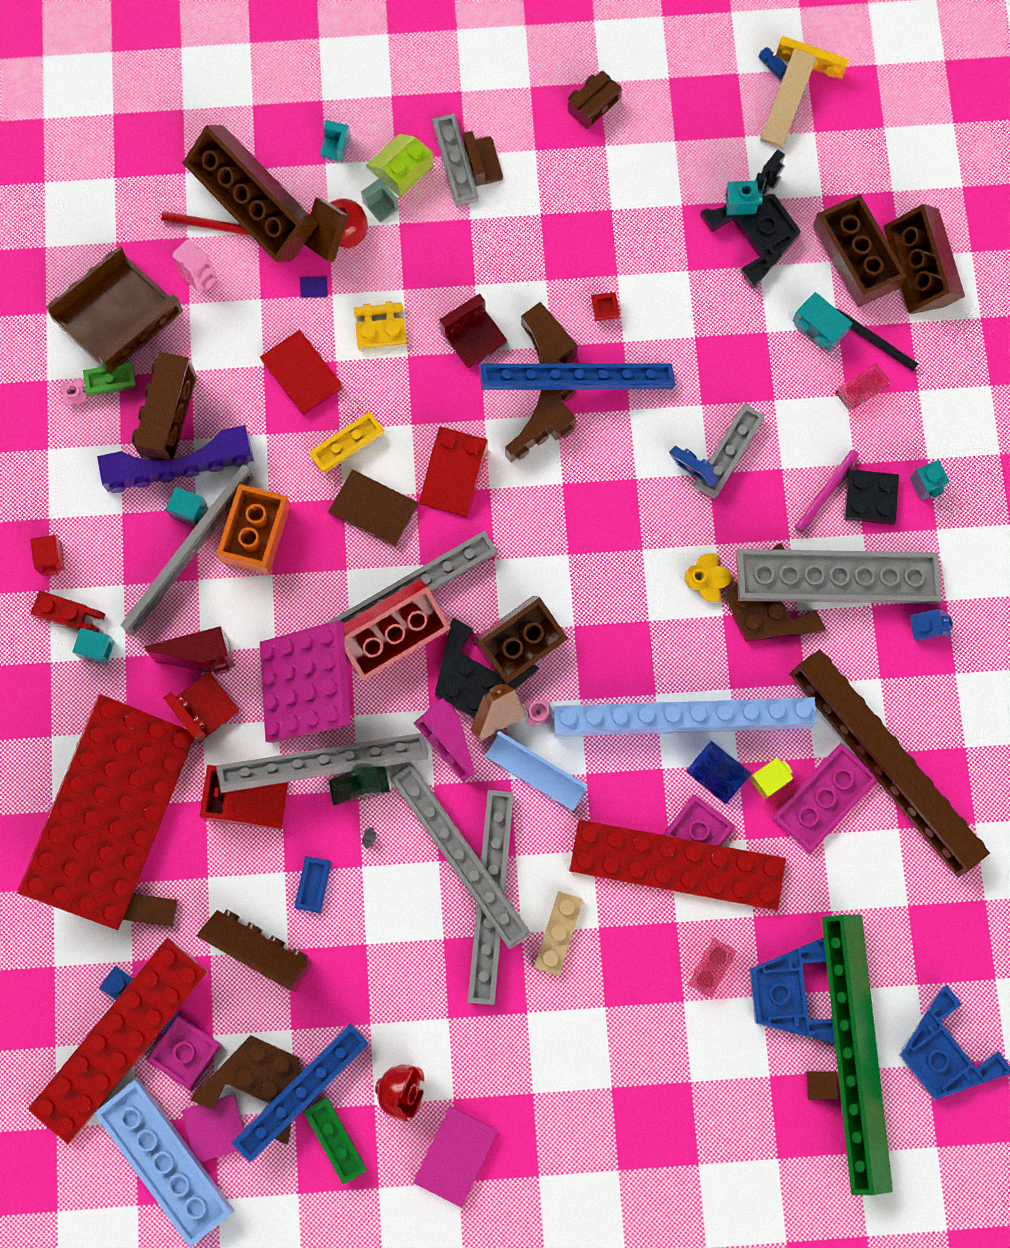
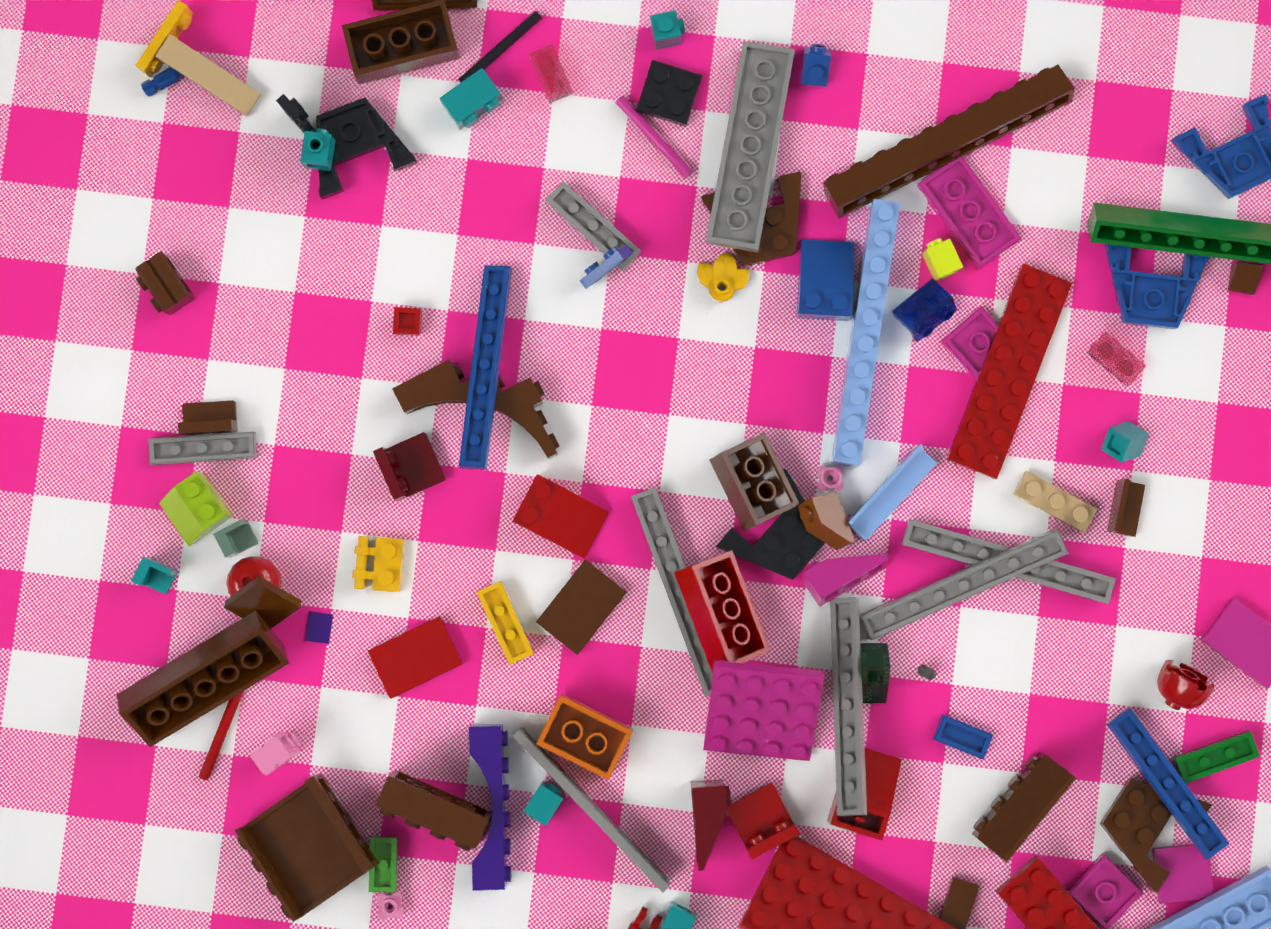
camera: 75 degrees left, 10 degrees up
(566, 1005) = (1126, 508): none -> reddish brown panel
(631, 991) = (1125, 441): none -> teal panel
(726, 671) = (825, 280): none -> blue slope

